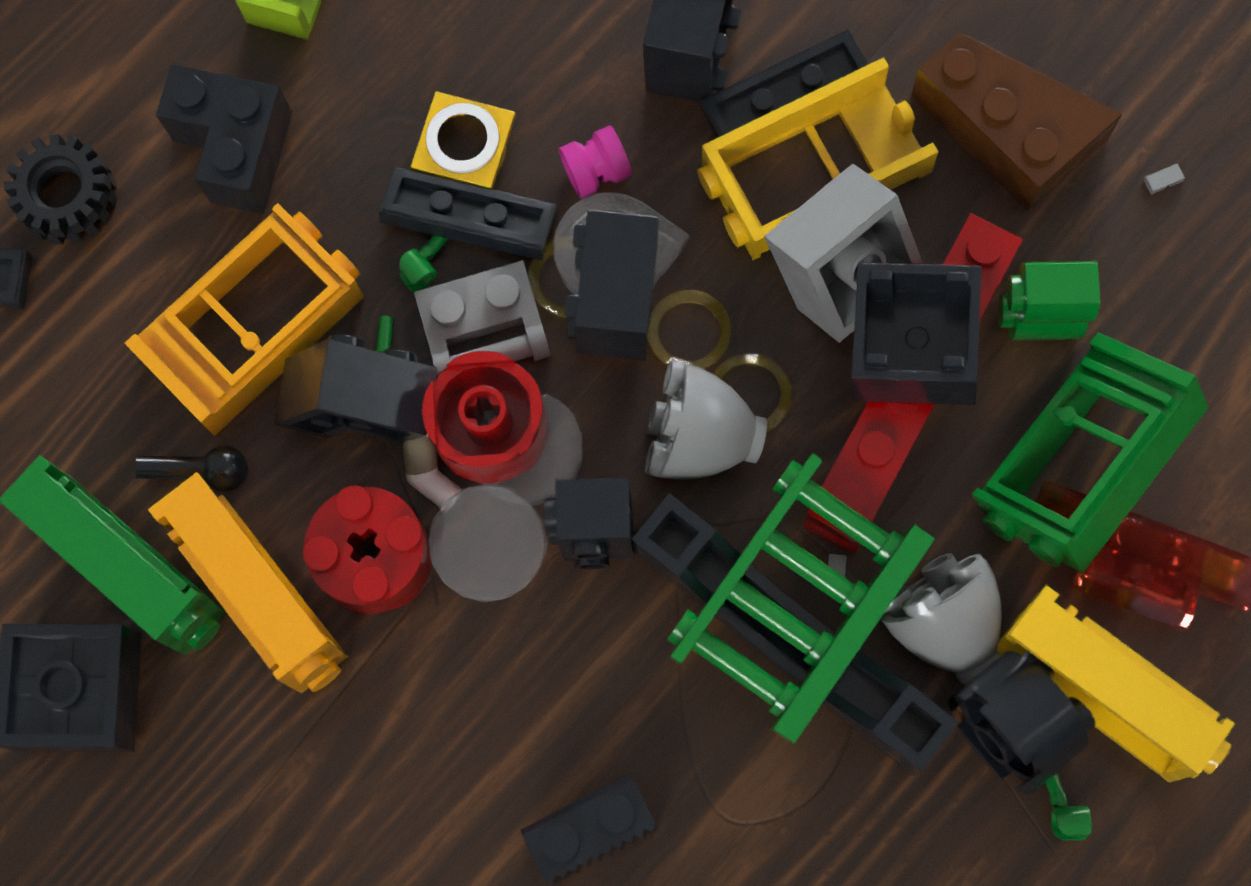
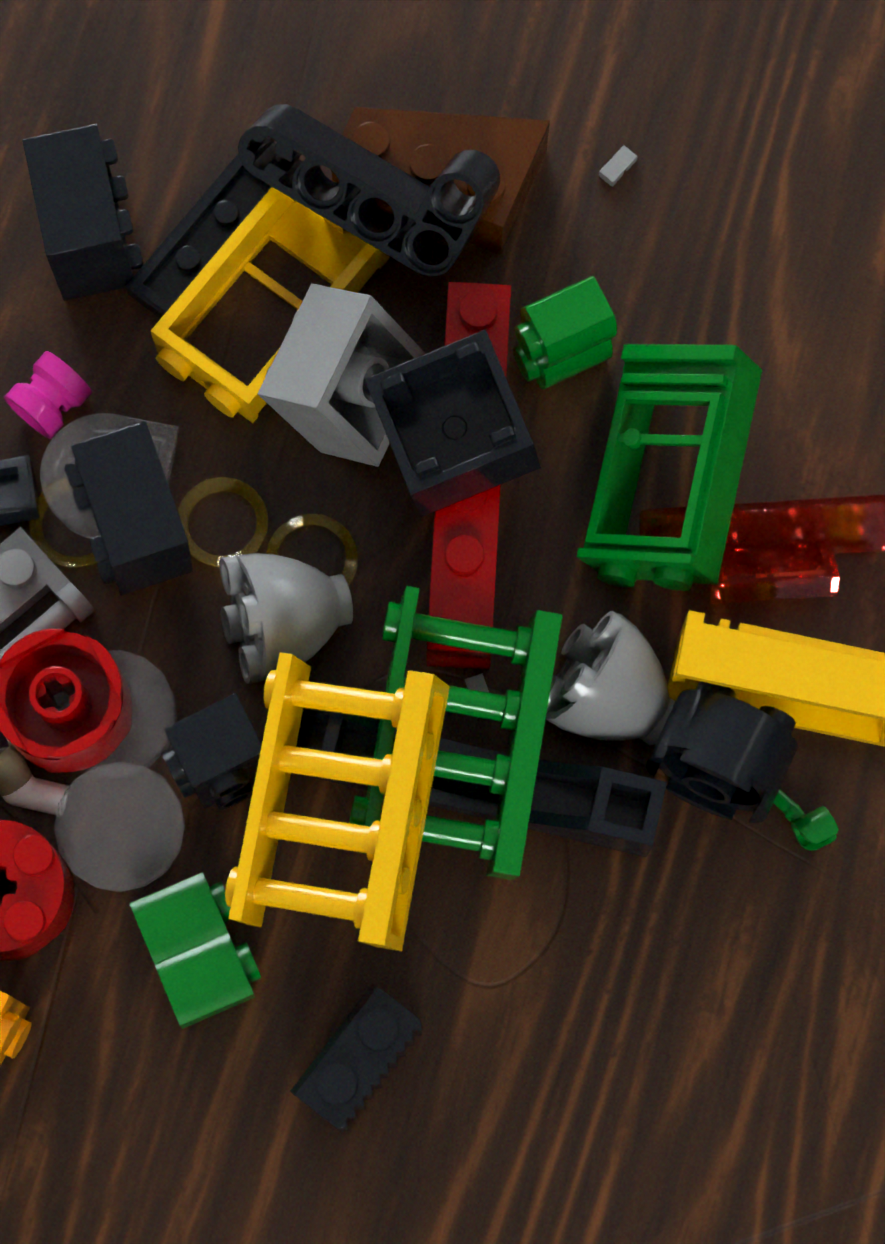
camera: 35 degrees left, 0 degrees up
(499, 673) = (194, 950): none -> green brick
(696, 664) = (390, 843): none -> yellow fence
(889, 28) = (367, 177): none -> black beam

